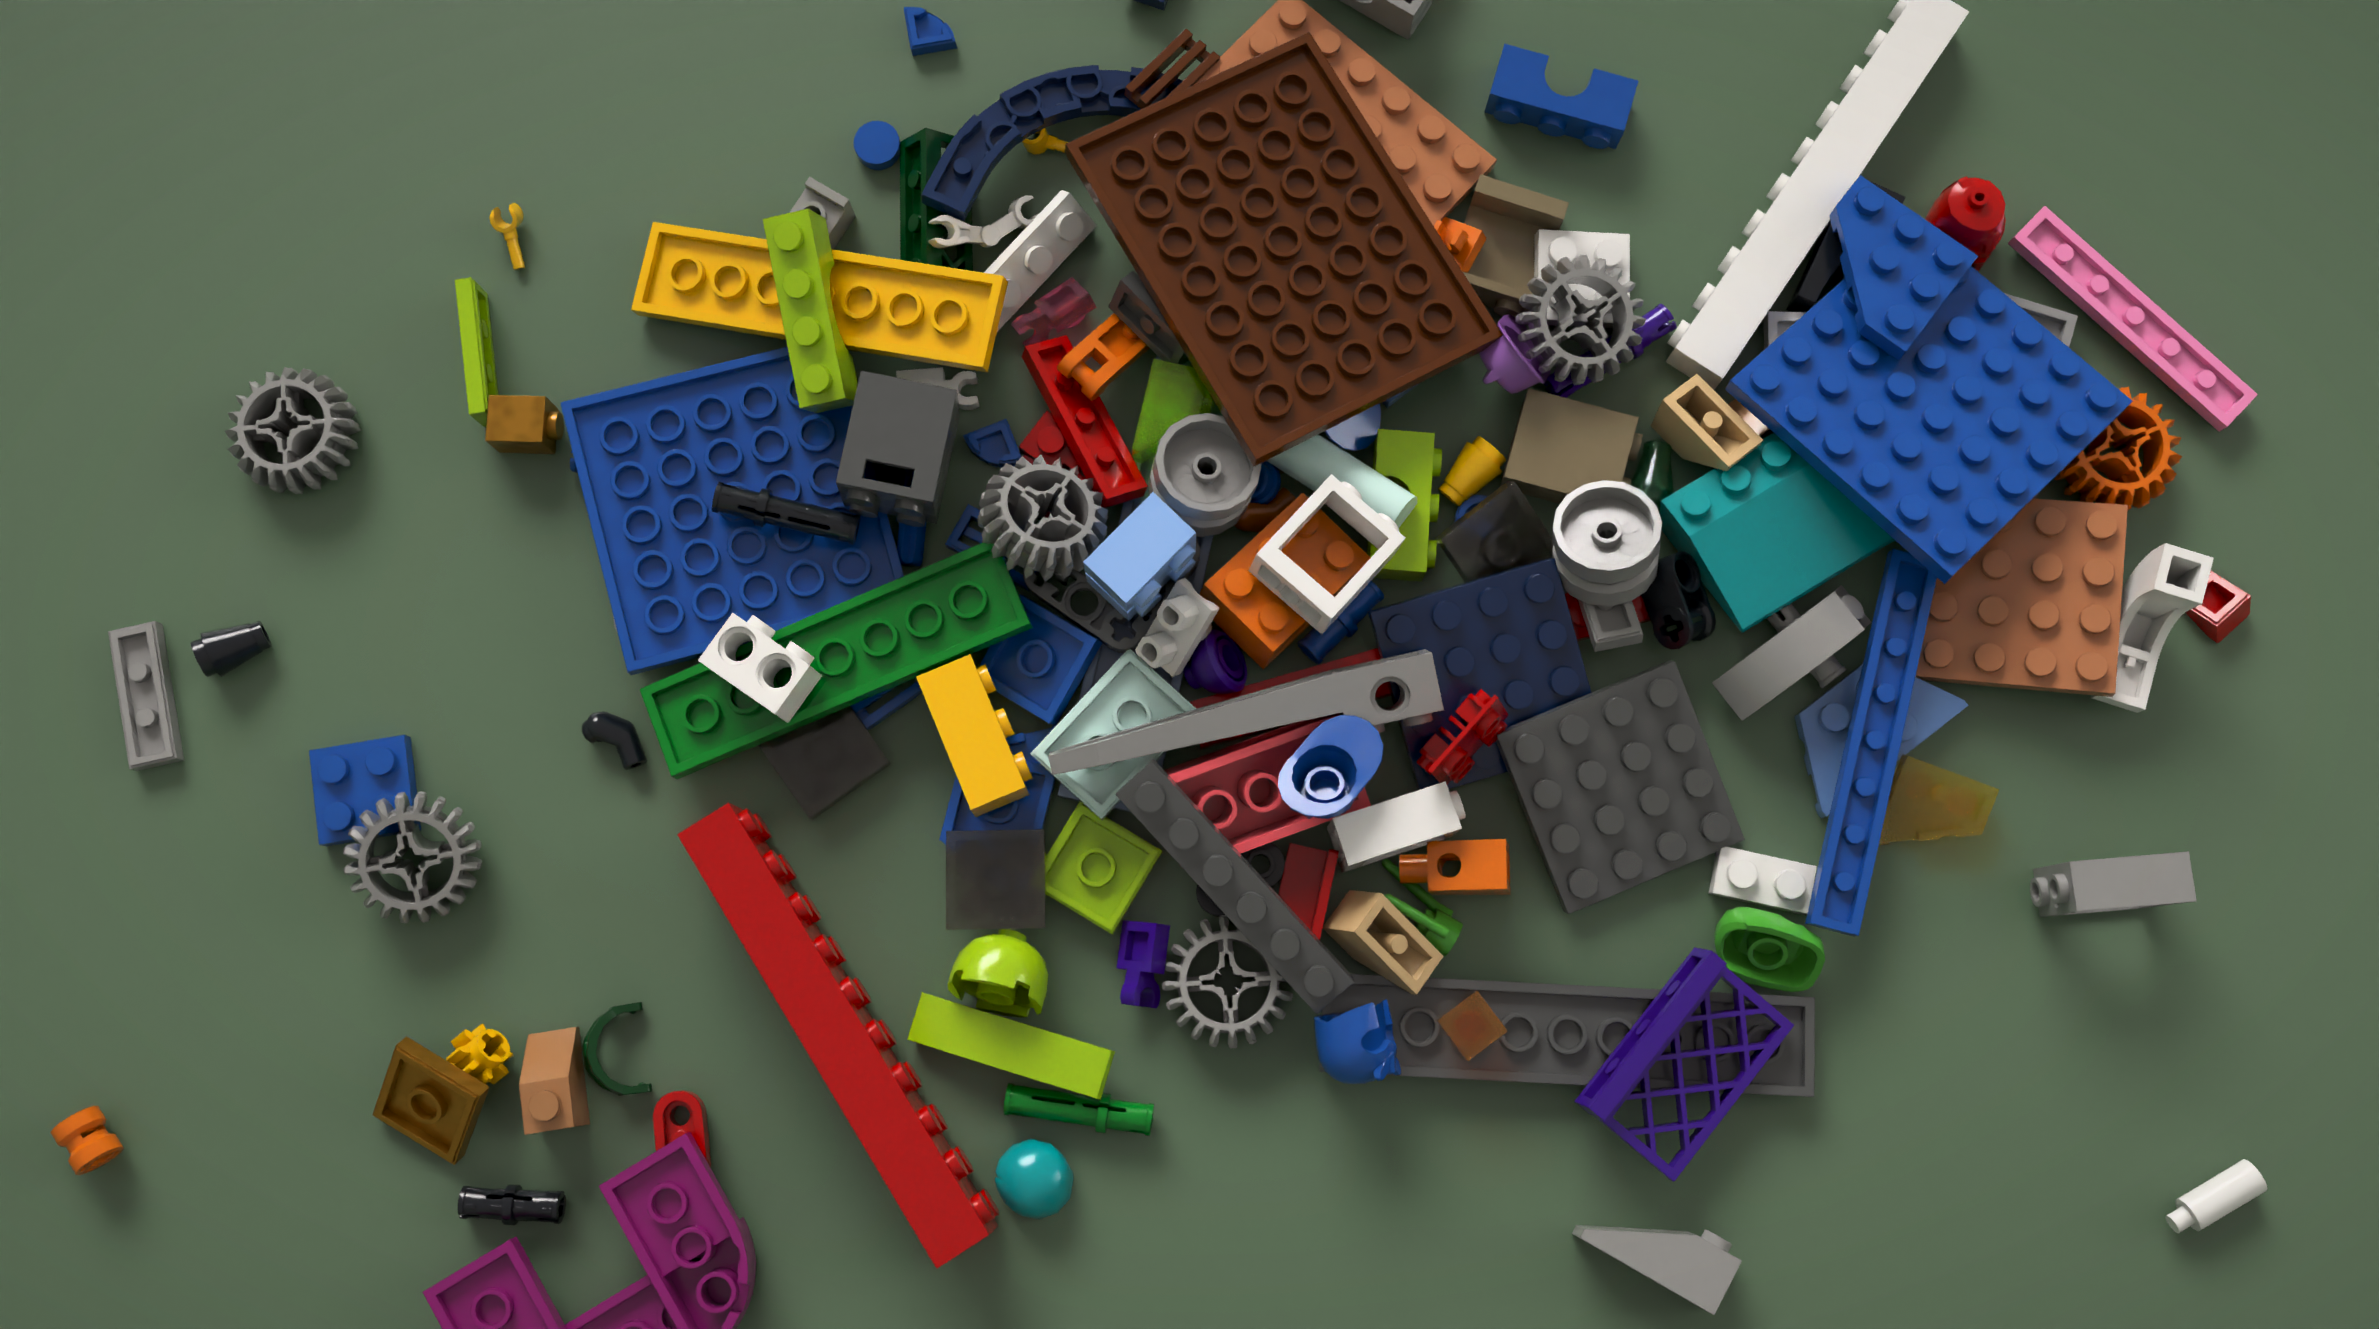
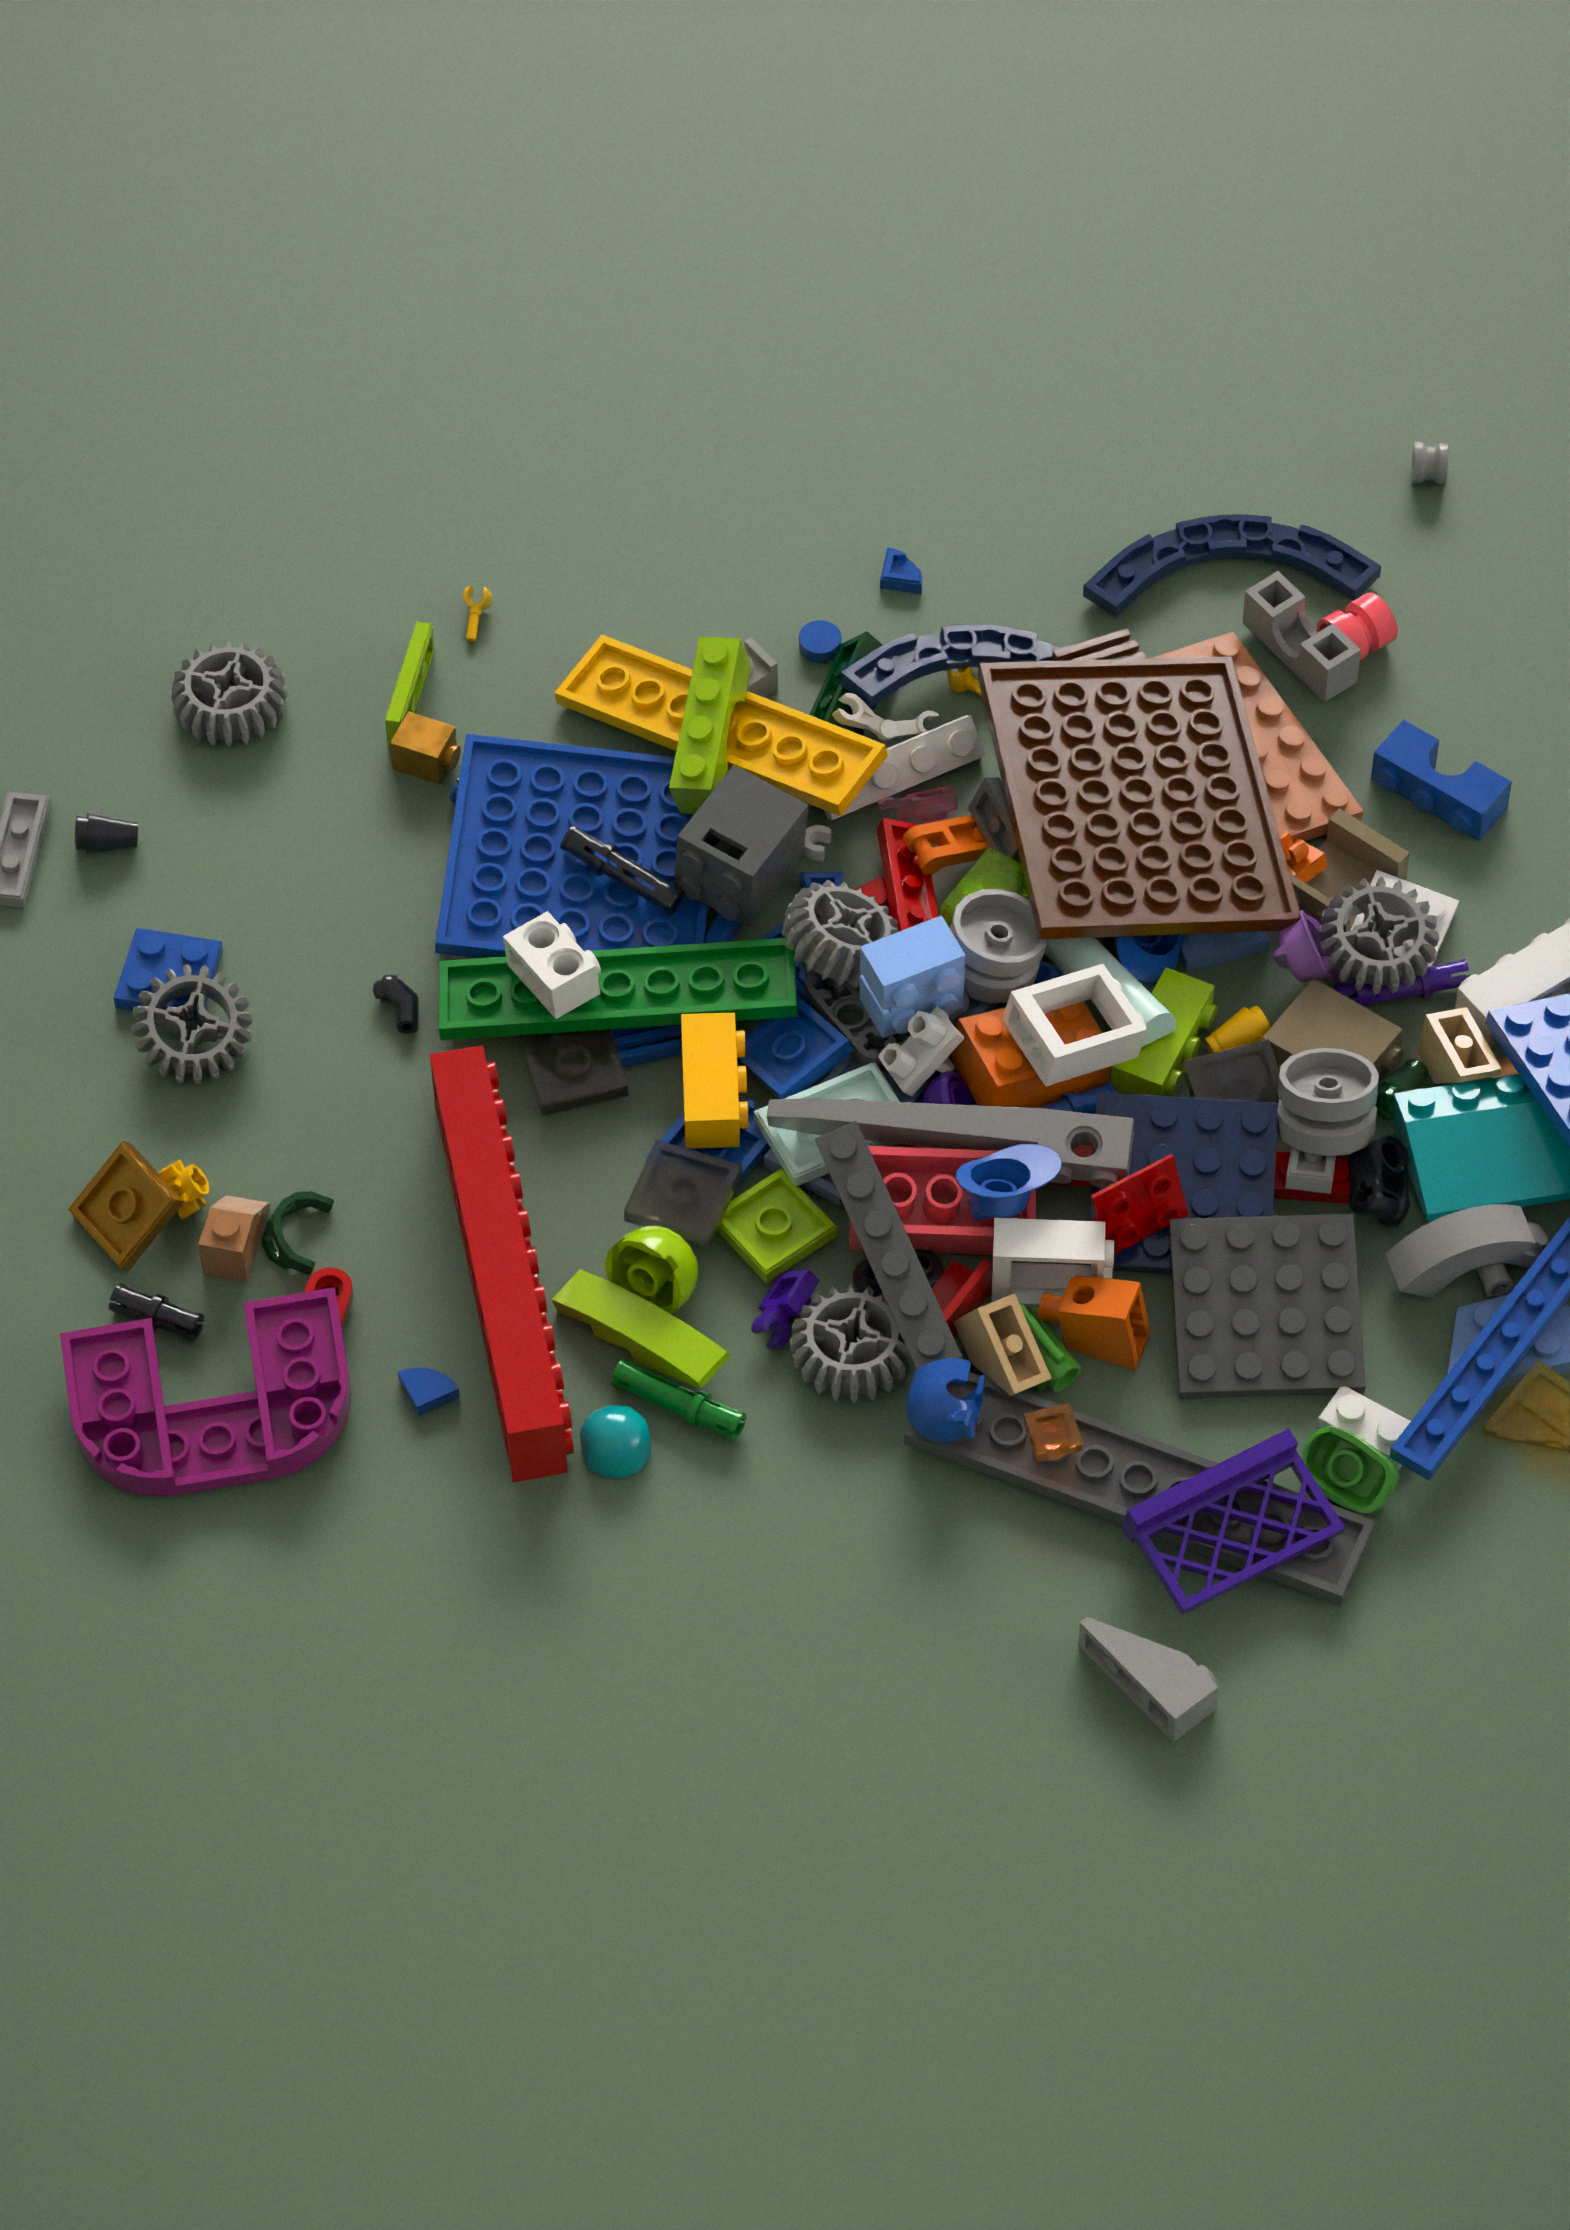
camera: 20 degrees right, 25 degrees down
(821, 1188) = (427, 1388): none -> blue tile

